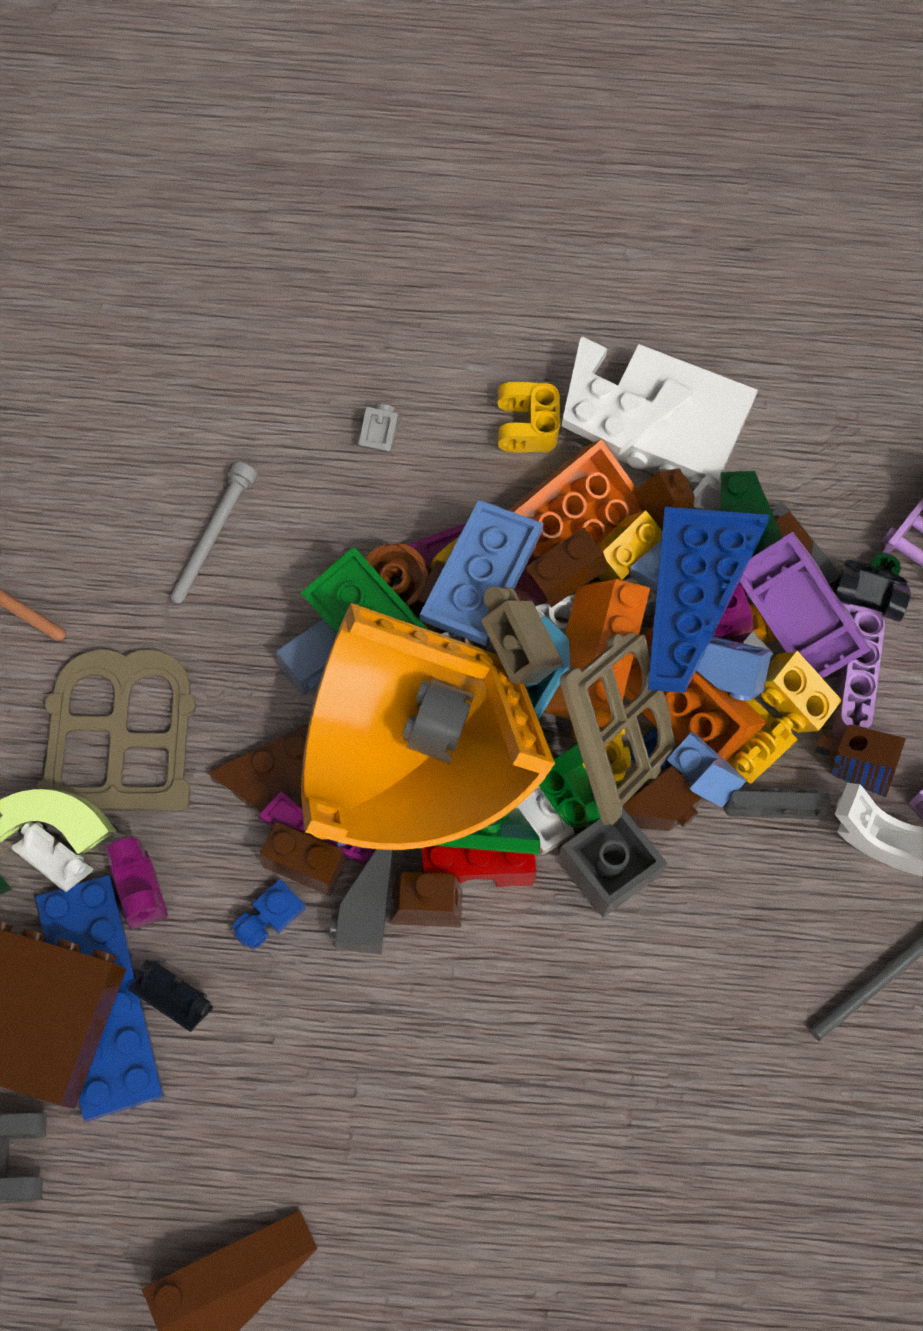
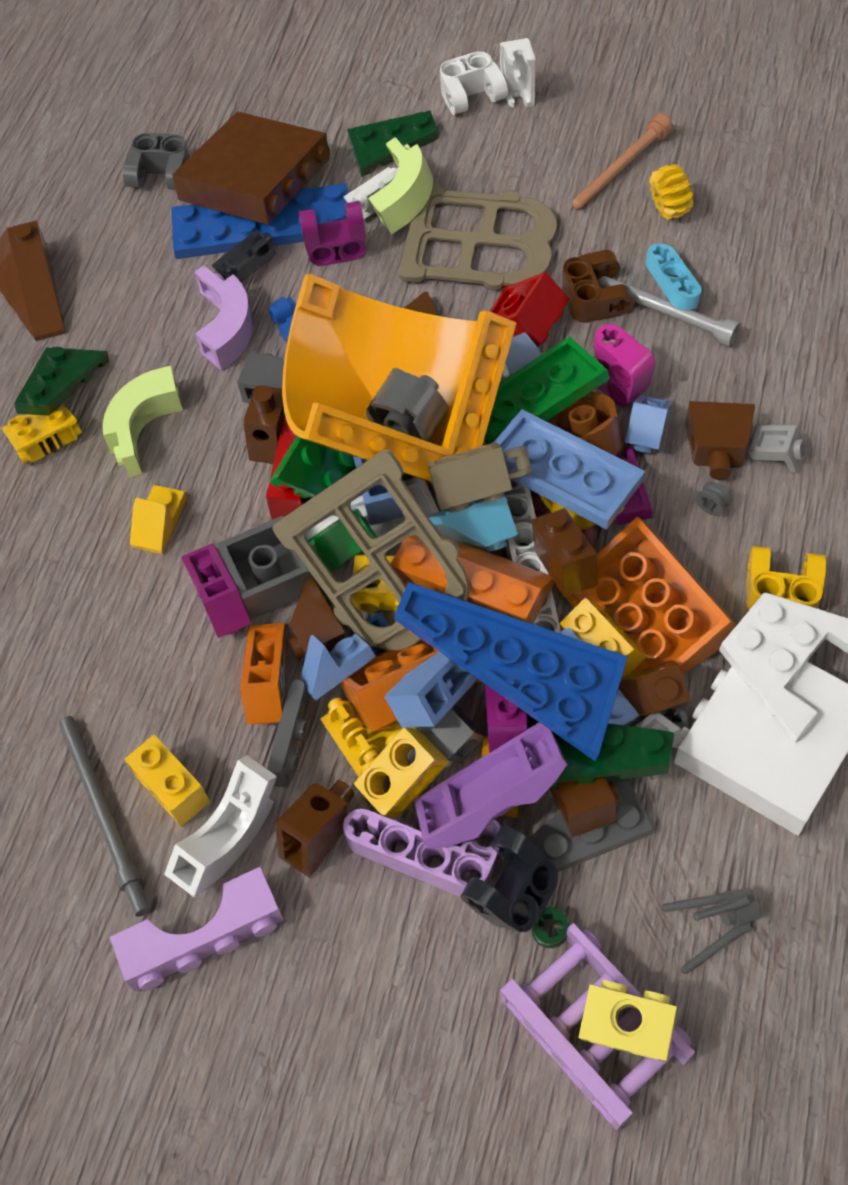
camera: 110 degrees right, 5 degrees down
(56, 532) = (671, 191): none -> yellow gear
(168, 540) = (672, 286): none -> medium azure beam
(193, 604) = (586, 297): none -> reddish brown piece
(235, 666) = (533, 306): none -> red slope
(269, 982) = (232, 328): none -> lavender arch
(318, 549) = (628, 364): none -> dark pink piece
(365, 530) = (648, 423): none -> medium blue slope
(377, 474) = (718, 435): none -> reddish brown torso
(390, 1183) = (55, 377): none -> dark green wing
(426, 1074) = (135, 406): none -> yellowish green arch
(448, 476) = (714, 498): none -> dark grey bush
(461, 1186) = (28, 430): none -> yellow hinge
(559, 1005) = (156, 518): none -> yellow slope
(637, 915) = (216, 590): none -> magenta slope
(719, 841) = (264, 674): none -> orange slope
(832, 441) = (734, 909): none -> dark grey plant
(857, 904) = (167, 780): none -> yellow brick

